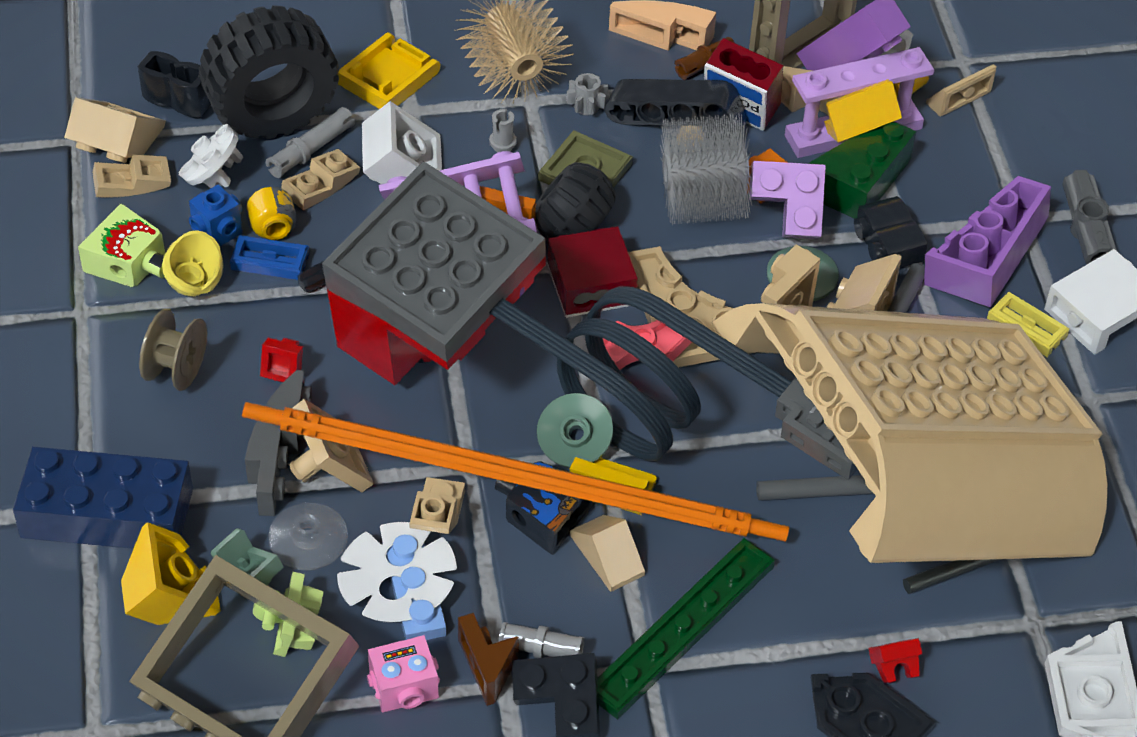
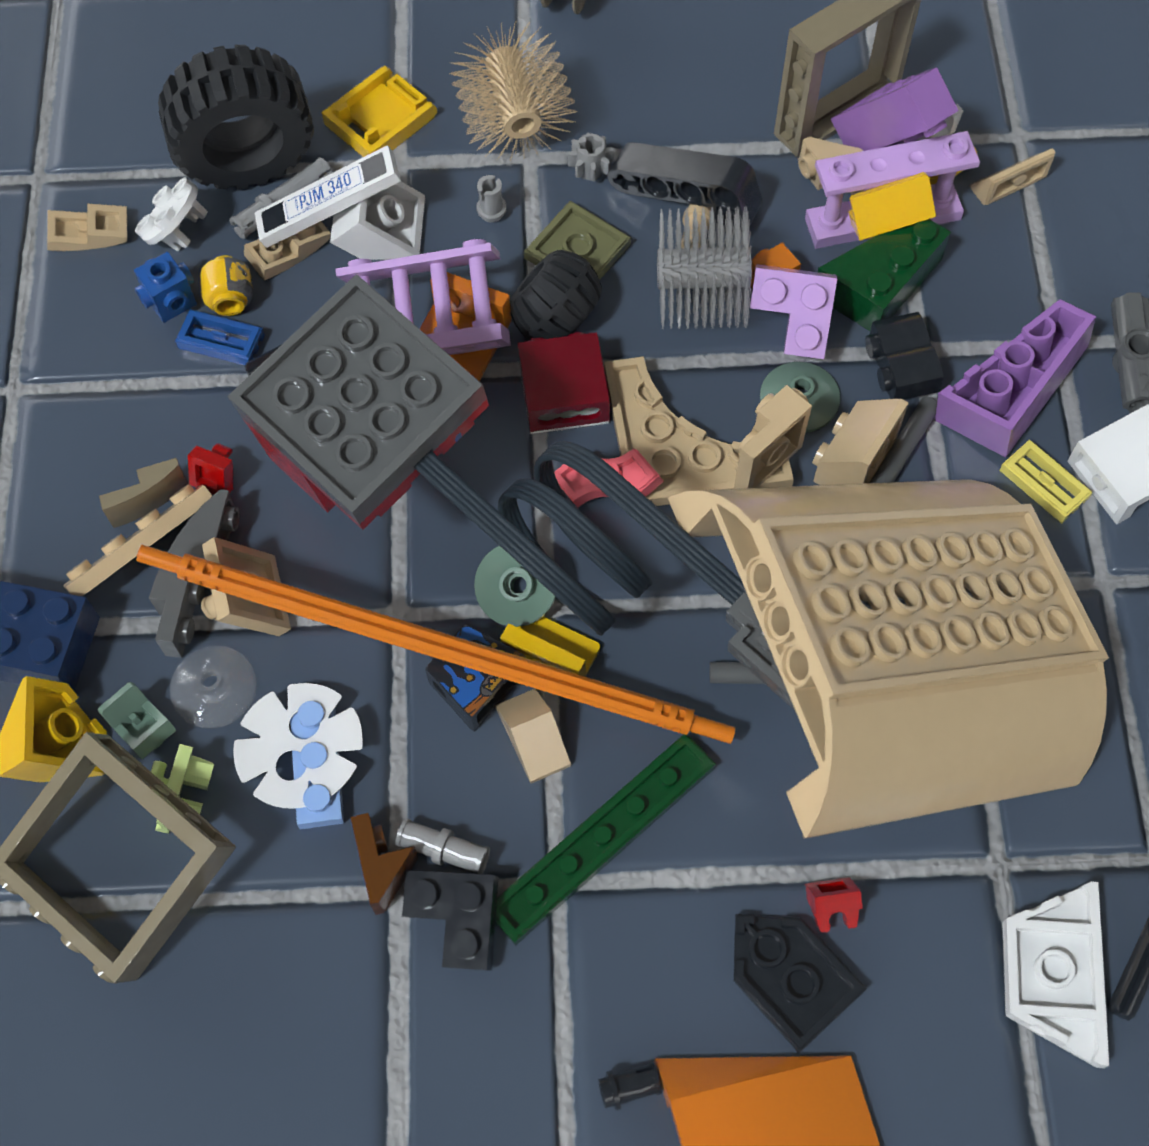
camera: 10 degrees right, 15 degrees up
(111, 129) = (72, 168): tan slope -> none
(123, 249) = (64, 320): yellowish green torso -> none
(172, 84) = (135, 117): black brick -> none
(173, 349) = (90, 452): dark tan piece -> none
(193, 264) = (130, 346): light yellow hair -> none
(209, 427) = (121, 550): none -> tan plate
(213, 390) = (156, 486): none -> dark tan slope
(358, 132) = (327, 196): none -> tile
(403, 674) = (286, 875): bright pink head -> none
(438, 506) = (353, 672): tan slope -> none
(662, 23) = (688, 71): light nougat slope -> none
(696, 61) = (728, 117): reddish brown axle -> none
(753, 75) = (773, 154): dark red piece -> none

